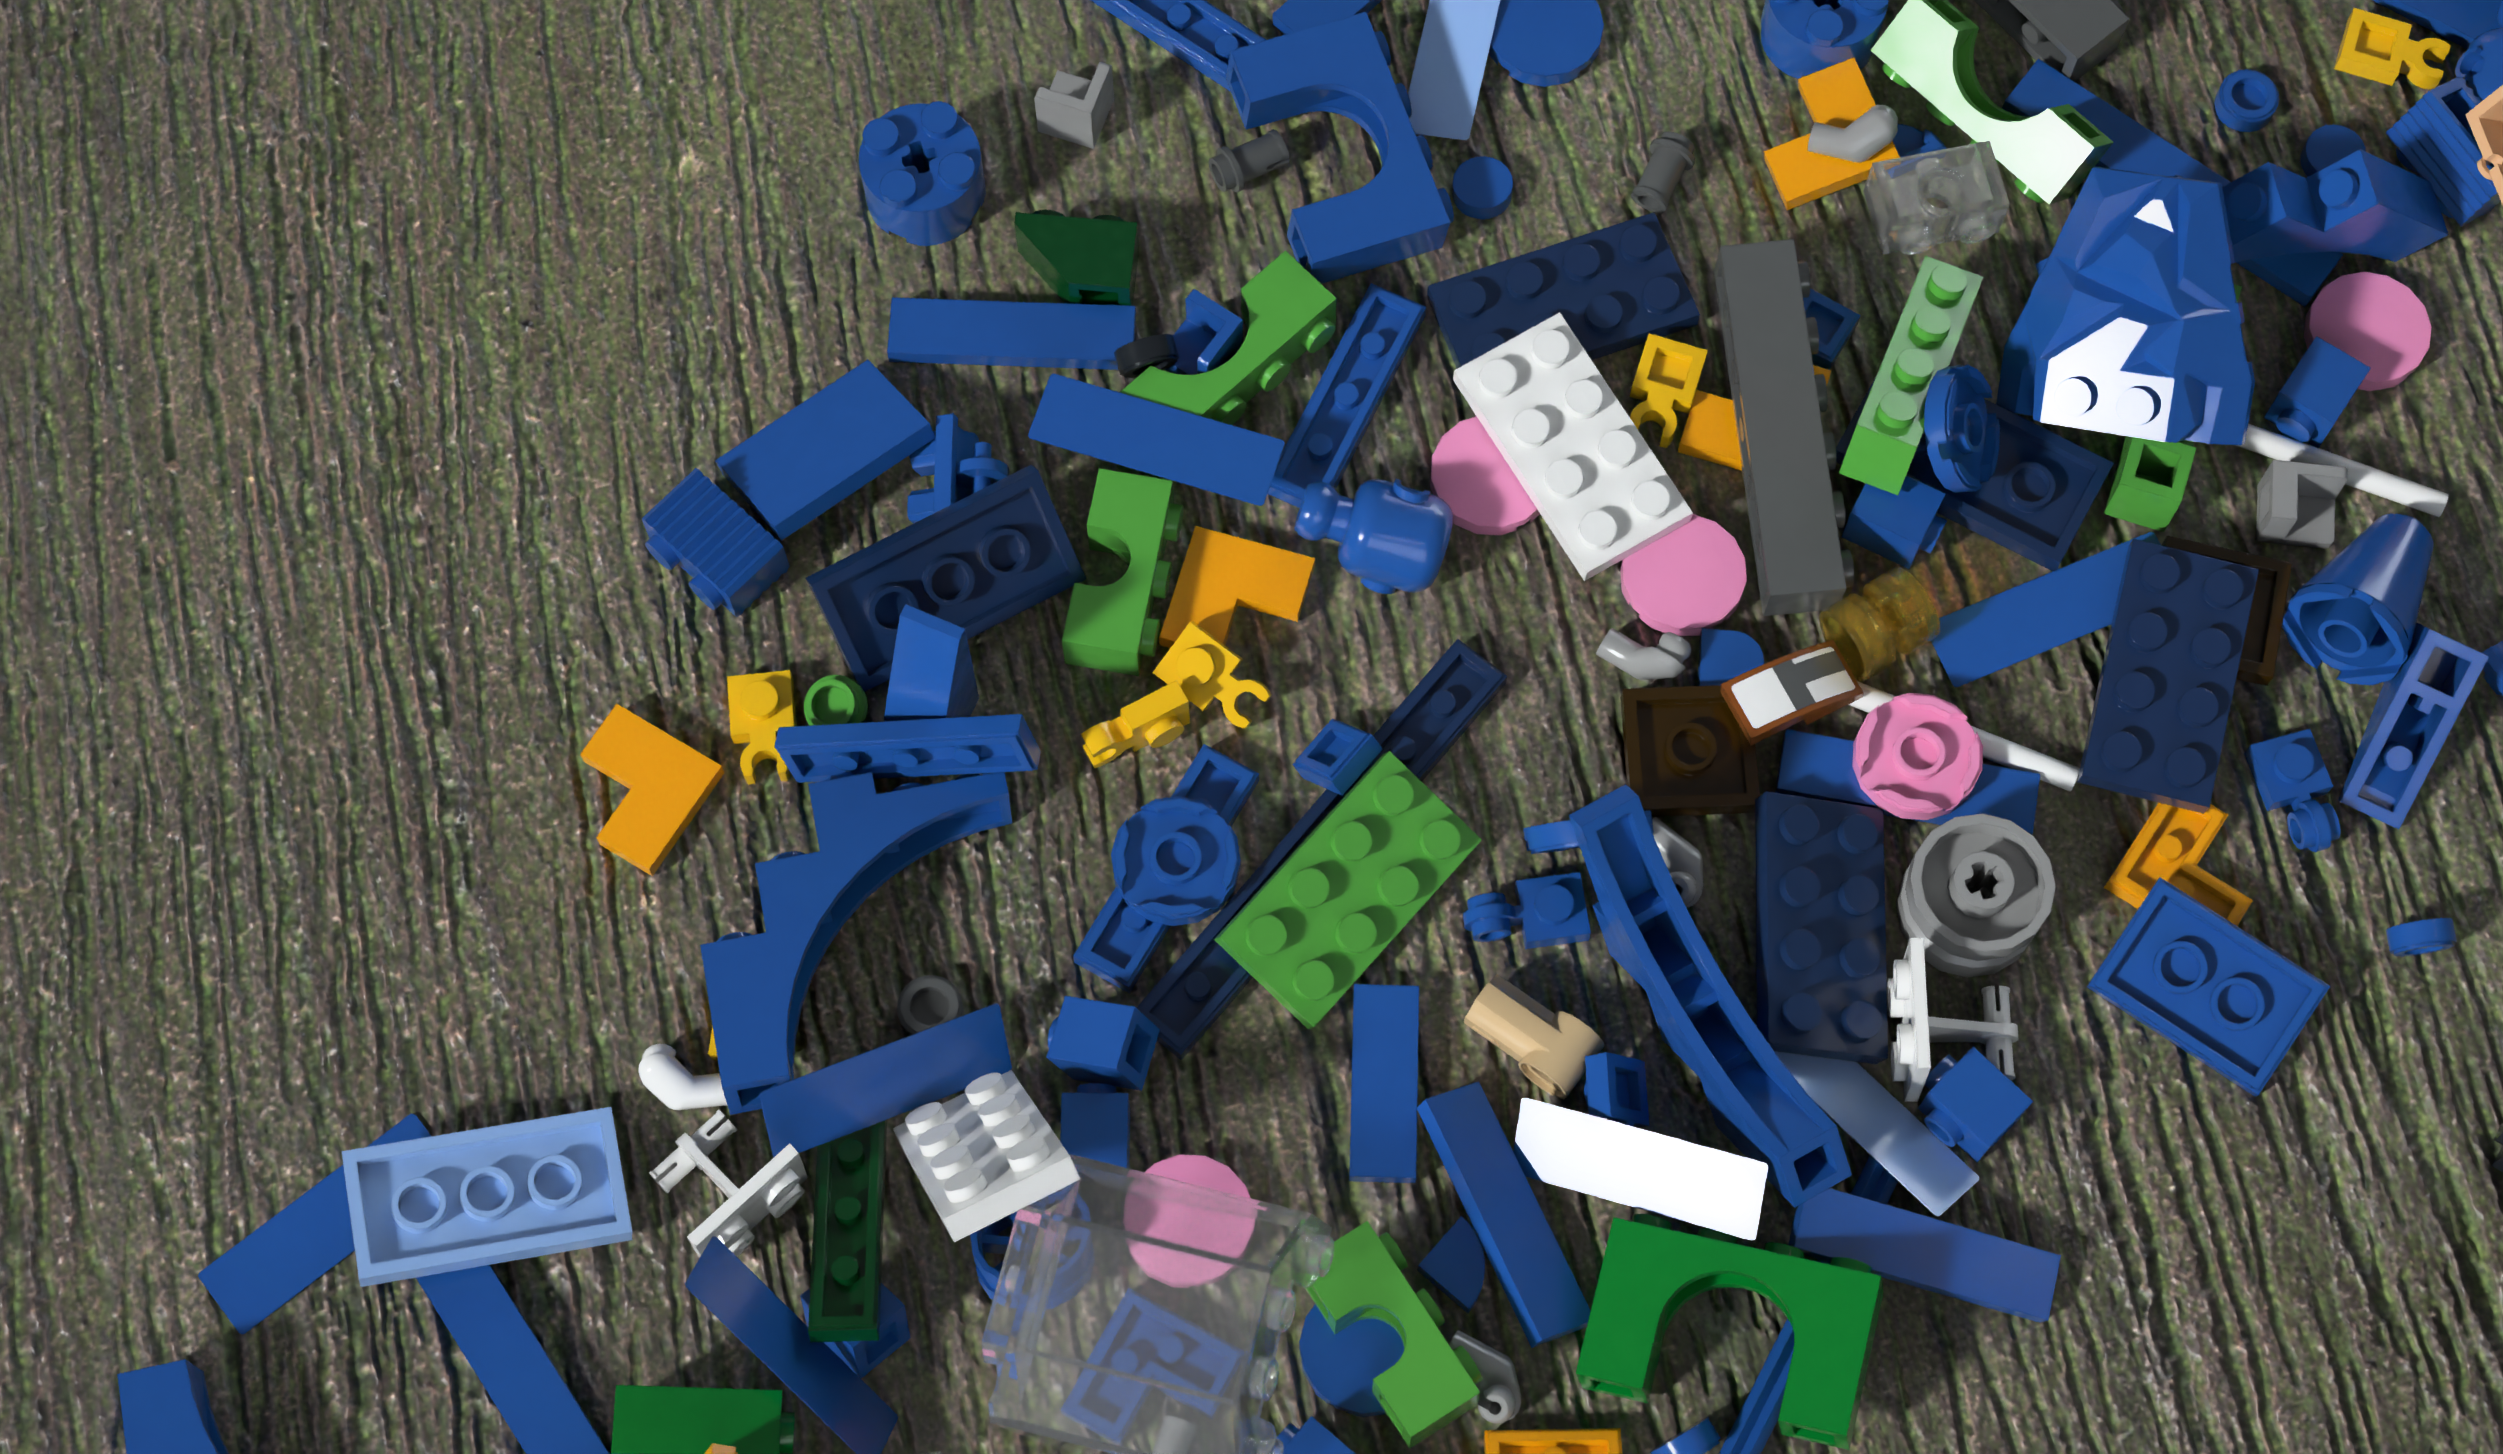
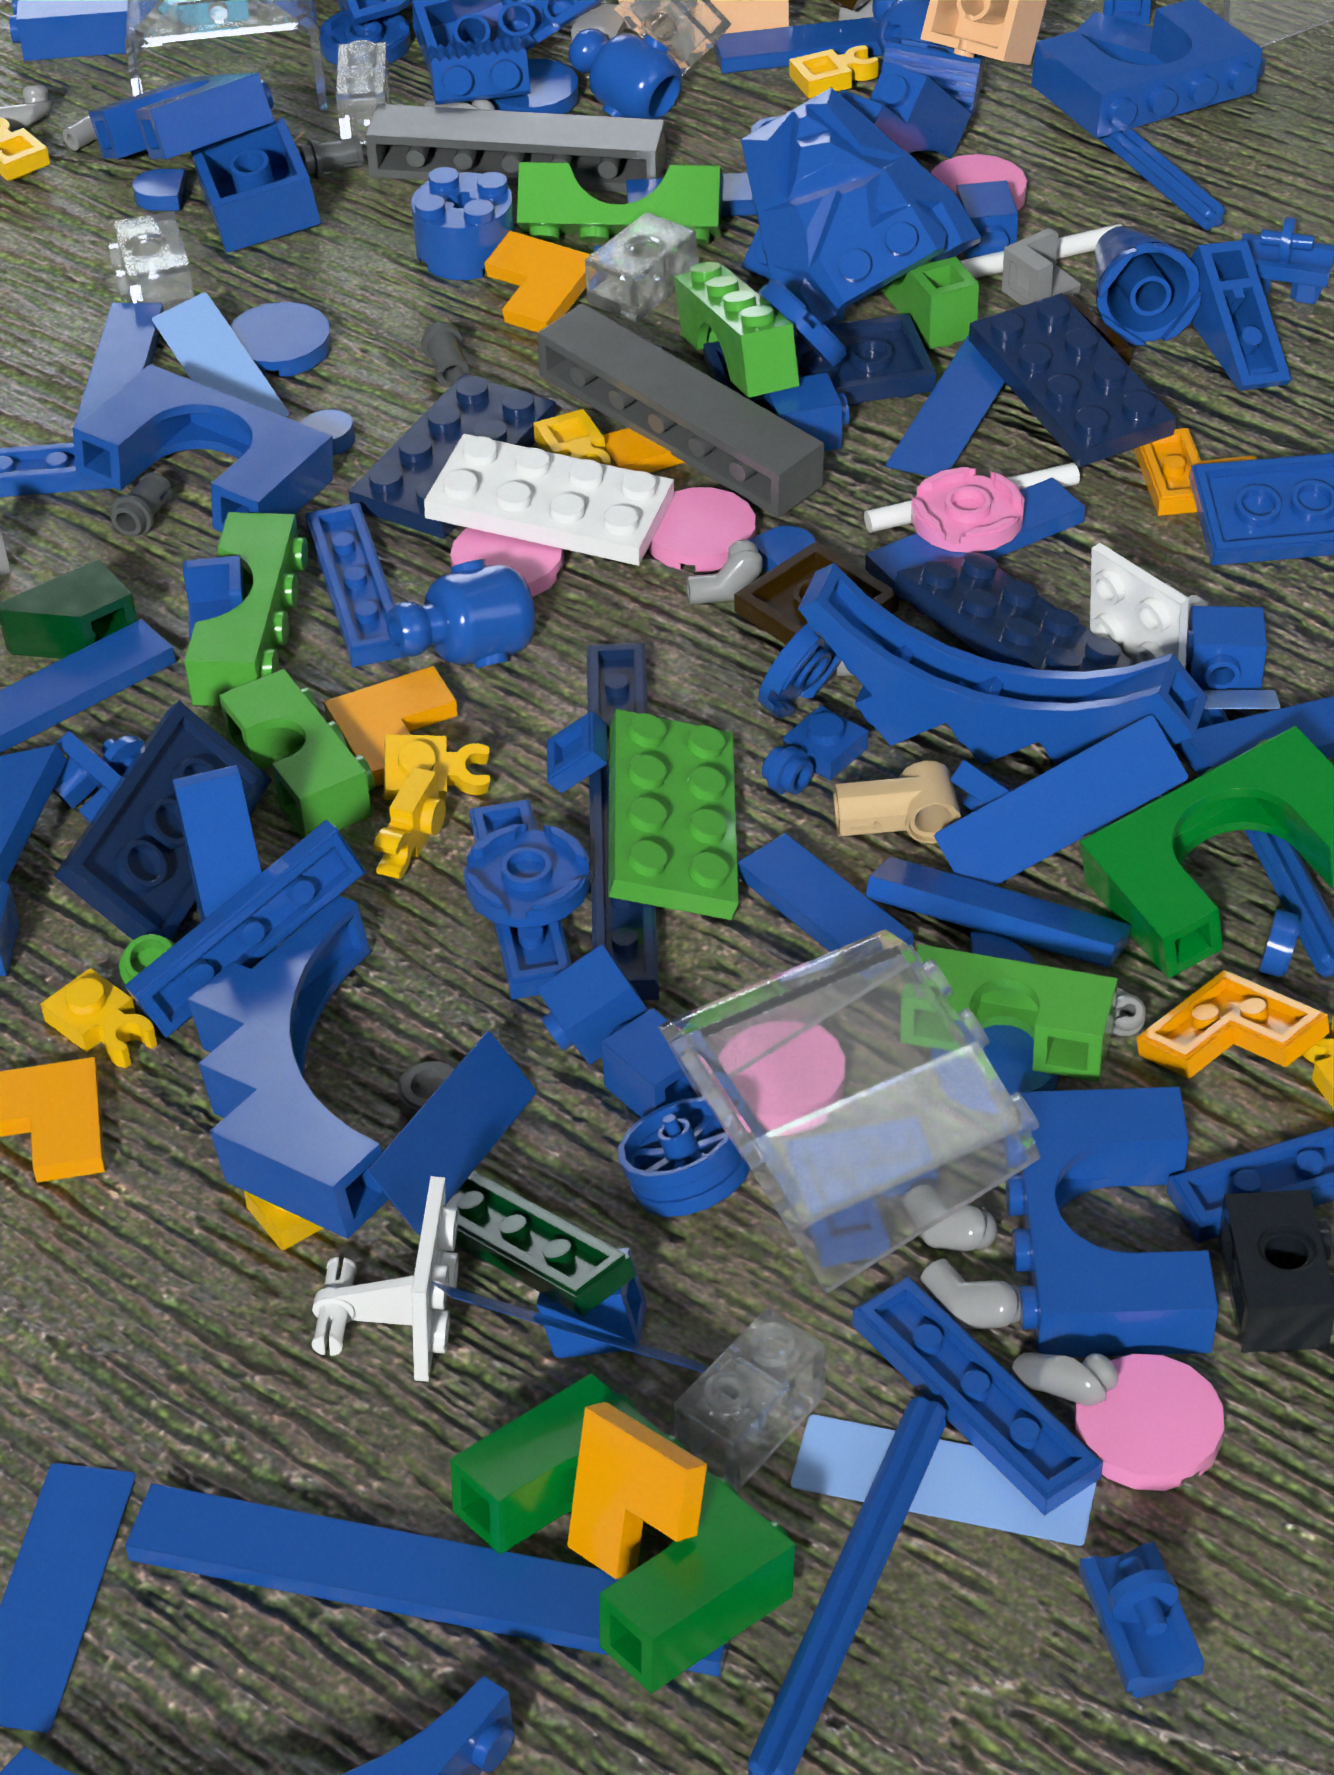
camera: 40 degrees left, 25 degrees down
(486, 1196) = (185, 1445): light blue plate -> none
(675, 1084) = (275, 1274): white arm -> none
(984, 1153) = (592, 1083): white plate -> none
(1153, 351) = (180, 622): black tile -> none
(1156, 439) = (244, 654): blue sticker -> none
(1791, 690) = (846, 527): slope -> none
(1859, 139) = (561, 259): light grey arm -> none
(1887, 619) = (861, 463): clear yellow wheel -> none
(1976, 894) = (1075, 518): light grey wheel -> none
(2293, 773) = (1199, 393): blue plate -> none

